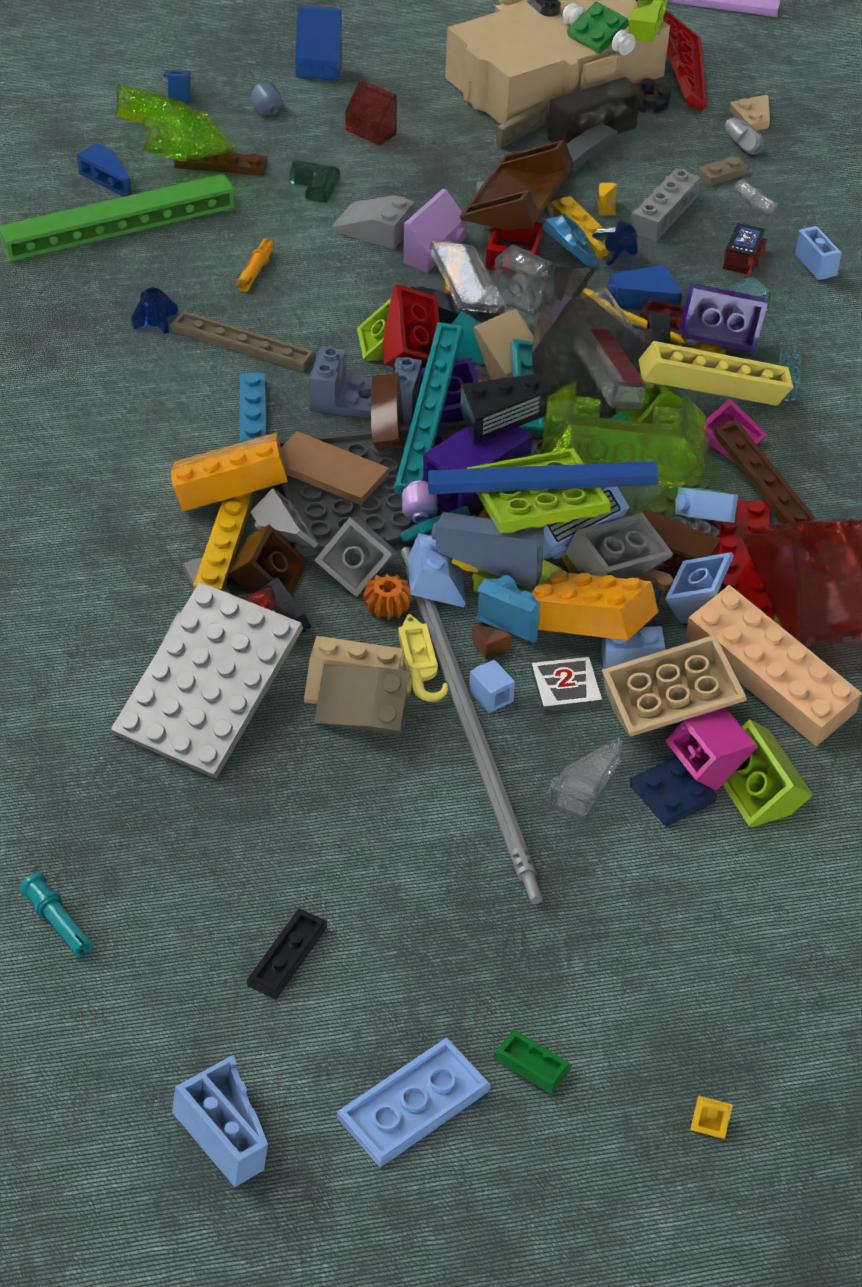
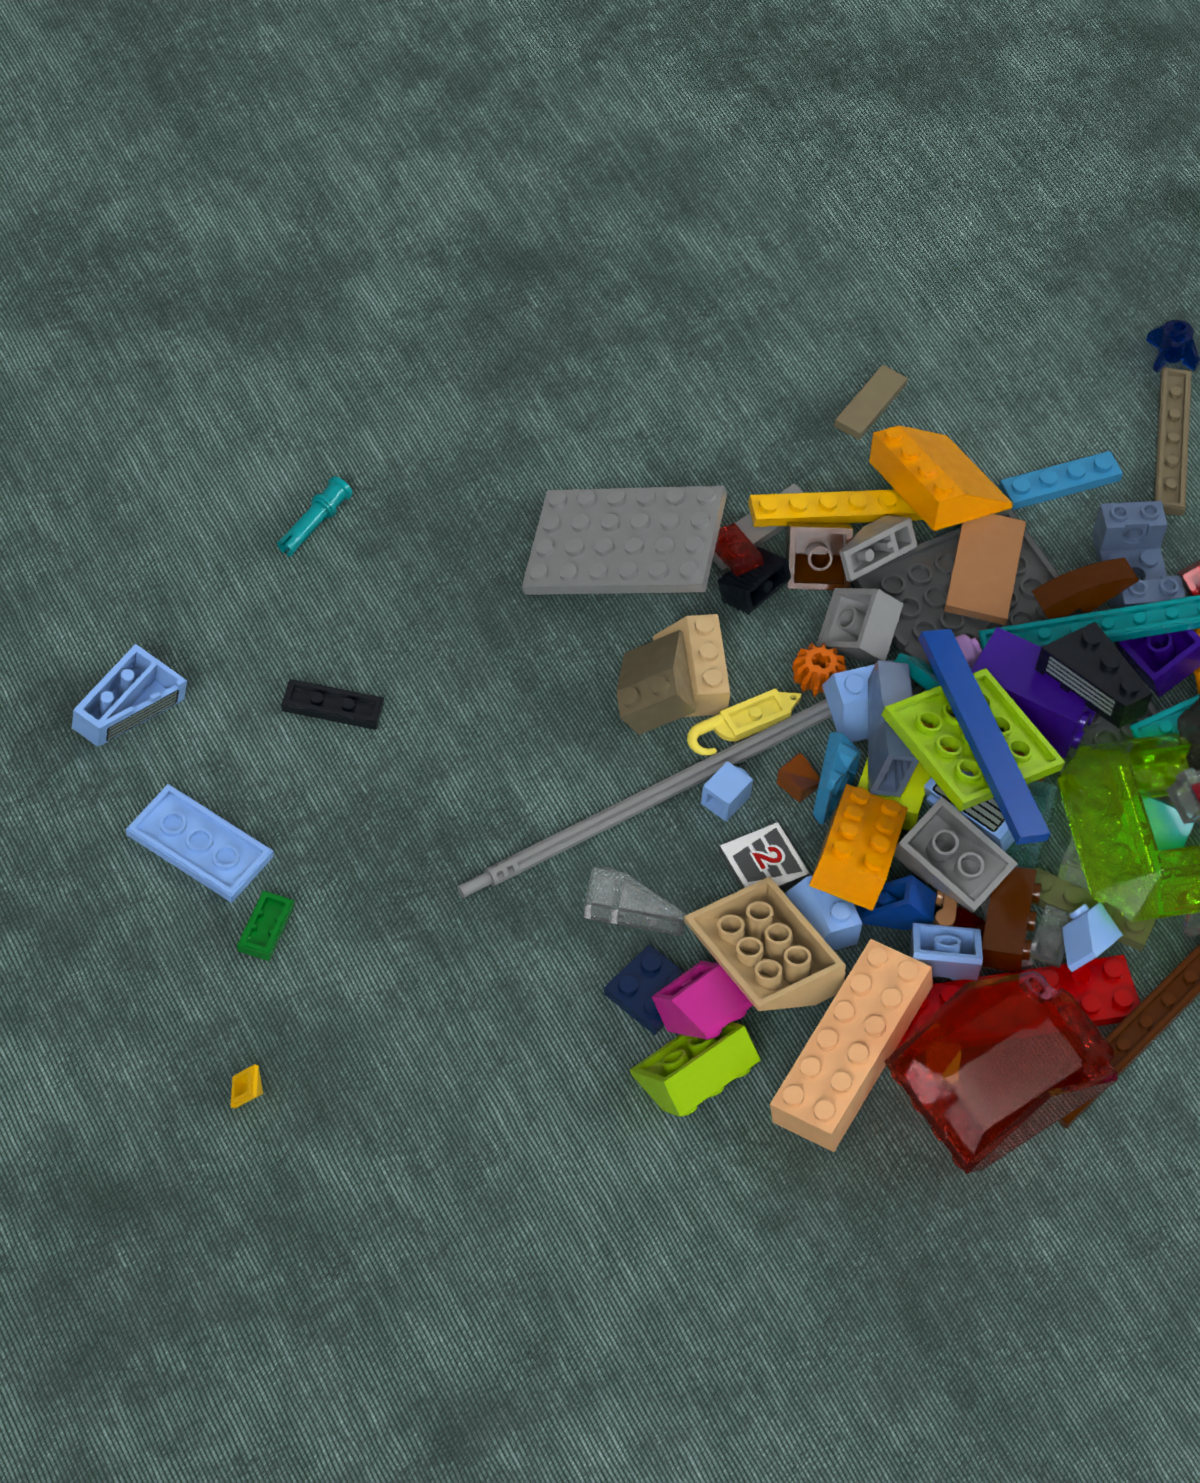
camera: 70 degrees right, 10 degrees up
(117, 496) = (870, 402): none -> dark tan tile

